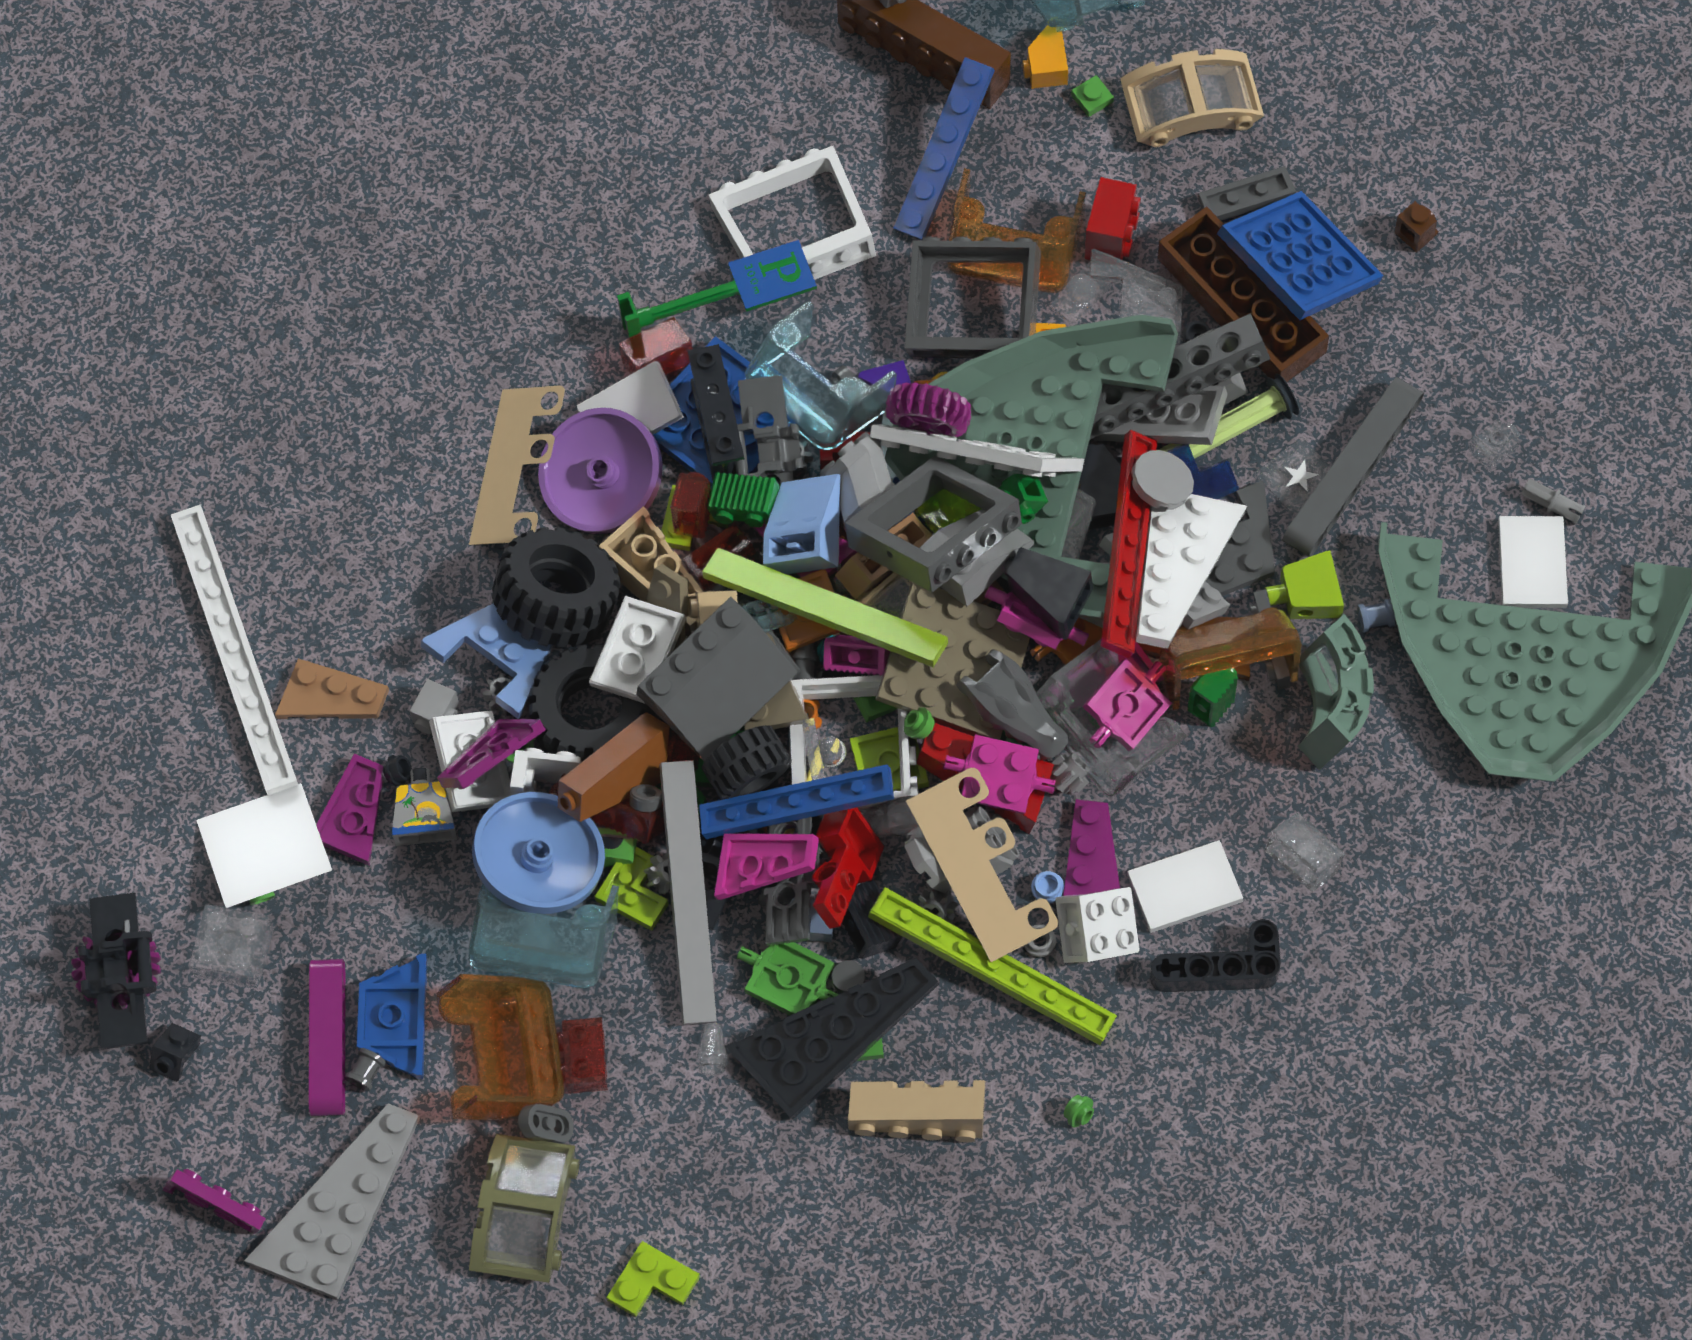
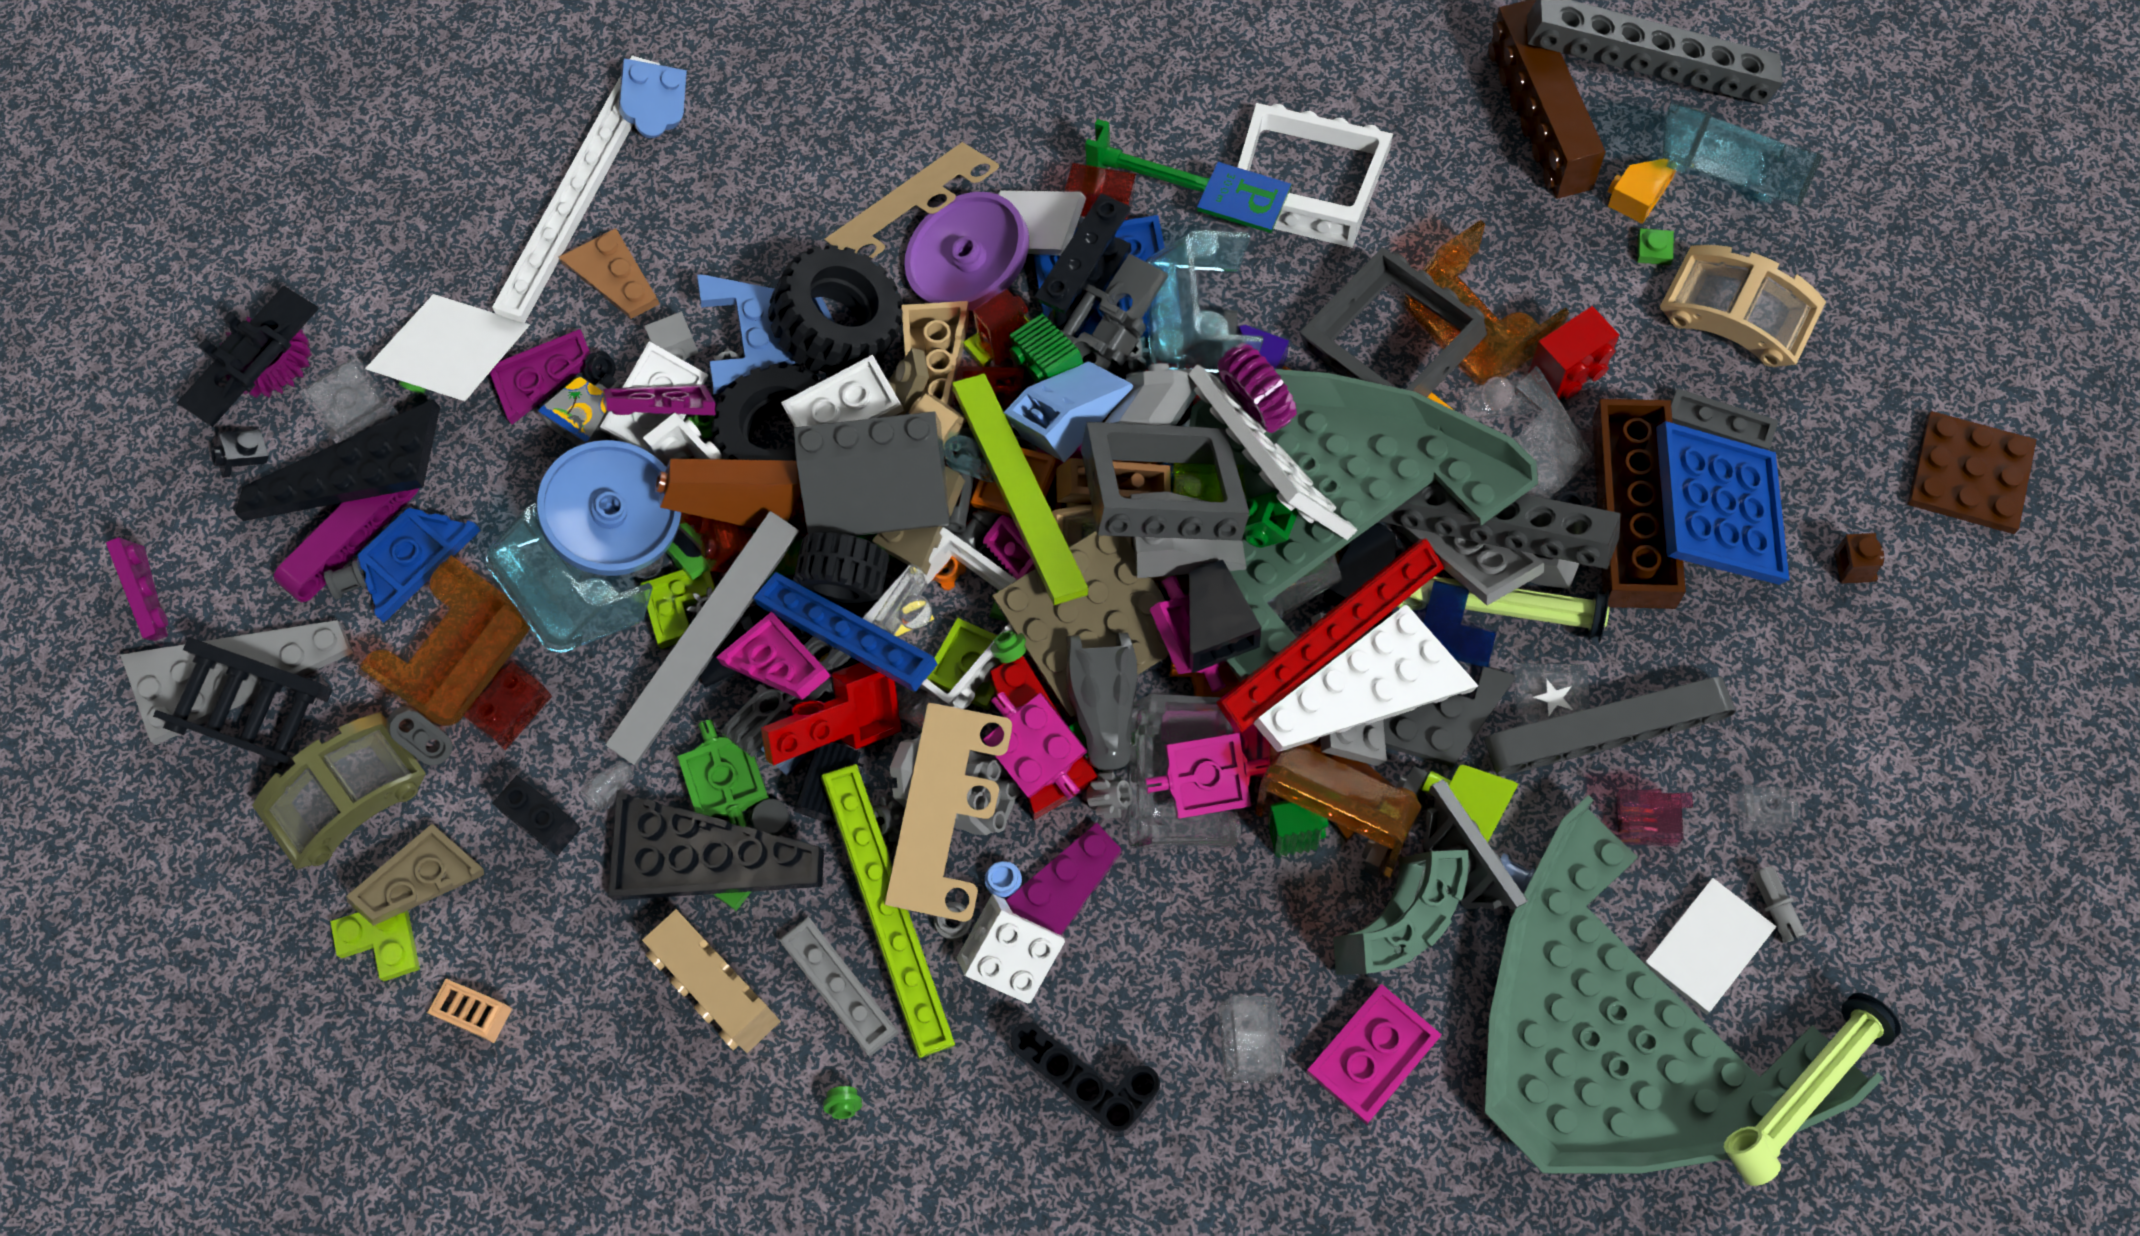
camera: 45 degrees right, 0 degrees up
(223, 535) = (651, 96): none -> medium blue plate
(298, 976) = (367, 465): none -> black wing
(364, 1186) = (238, 670): none -> black fence
(640, 1216) = (414, 876): none -> dark tan wing
(645, 798) = (737, 531): dark grey tile -> none
(685, 1107) = (536, 815): none -> black brick
(782, 1276) = (491, 1026): none -> light nougat slope
(944, 148) = (1482, 193): blue plate -> none
(1002, 1045) = (839, 986): none -> light grey tile
(1162, 479) = (1413, 601): light grey tile -> none
(1185, 886) = (1121, 979): white tile -> none
(1316, 612) = (1453, 829): none -> dark grey wing
(1387, 798) = (1373, 1054): none -> dark pink plate
(1429, 506) = (1651, 817): none -> clear pink piece
(1438, 107) = (1972, 472): none -> reddish brown plate
(1665, 660) = (1757, 1148): none -> yellowish green piece

